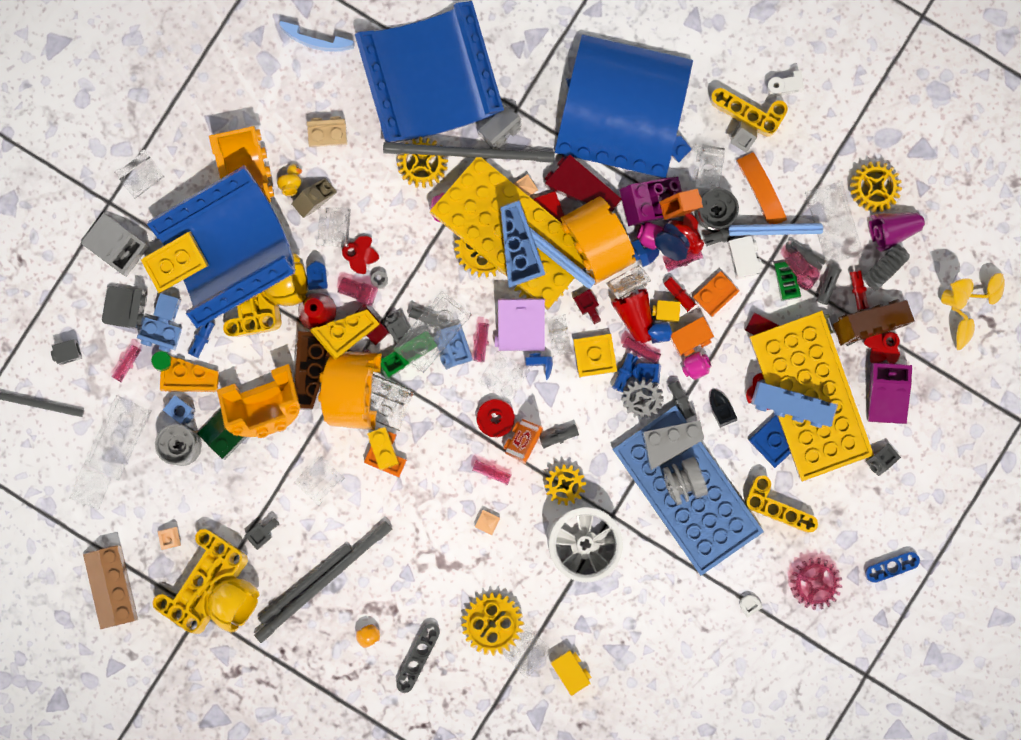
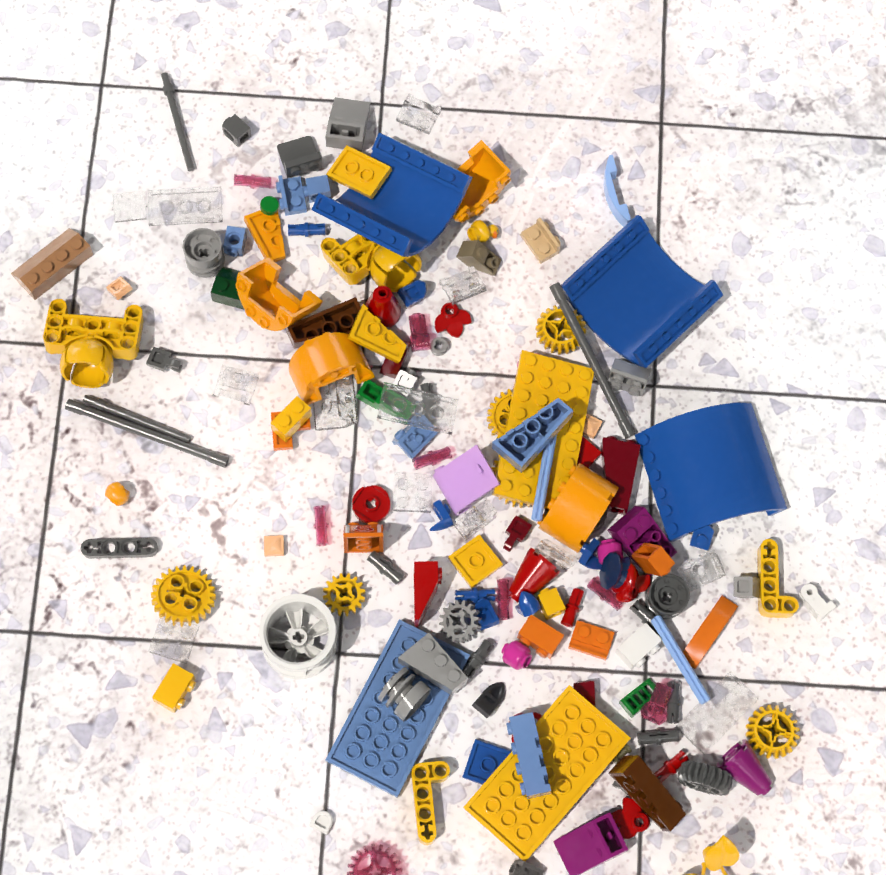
camera: 55 degrees right, 15 degrees down
(596, 411) = (426, 582): none -> red slope

